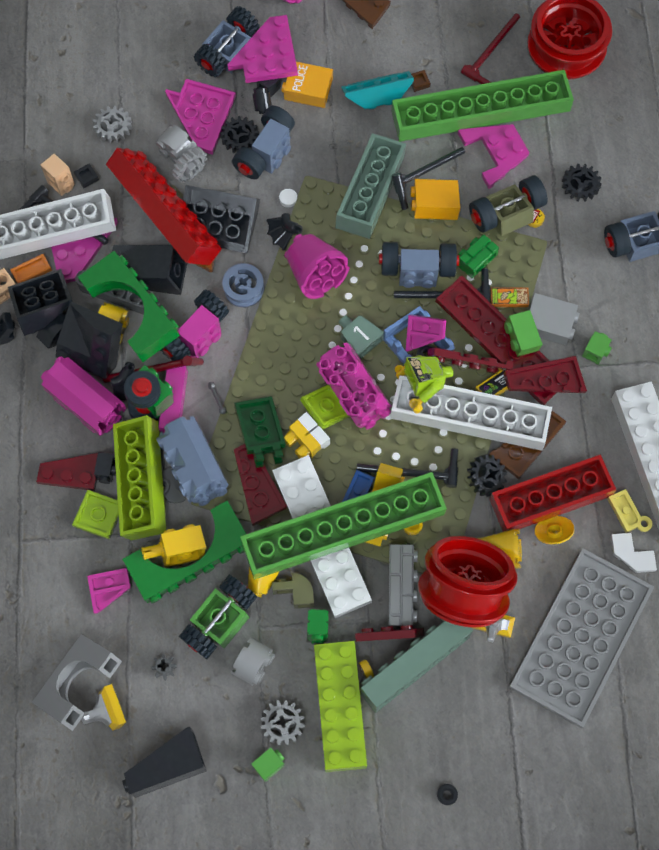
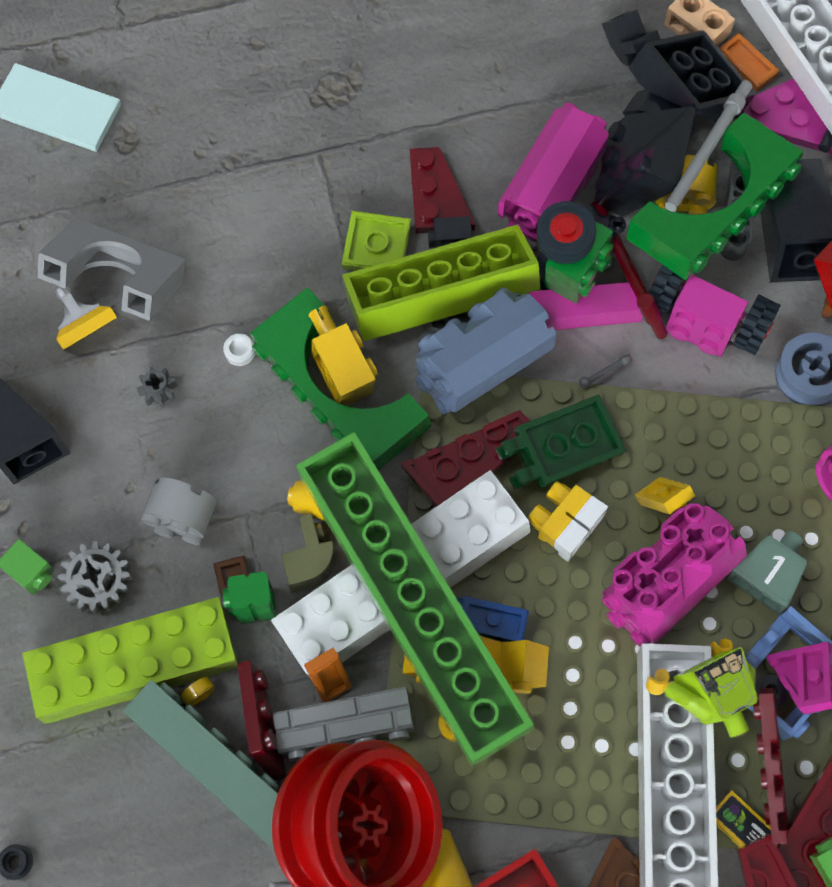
camera: 80 degrees right, 0 degrees up
(72, 281) = (732, 107): none -> light grey bar
(107, 587) = (264, 281): dark pink wing -> none
(149, 612) = (238, 349): none -> white tile
(219, 617) = (237, 444): brick -> none
(297, 639) = (228, 568): none -> reddish brown tile
(306, 379) = (665, 495): none -> yellow plate
(324, 407) = (624, 532): lime plate -> none
(373, 589) = (328, 675): none -> orange tile
(449, 476) = (553, 771): black bar -> none
(486, 475) = (571, 853): black gear -> none

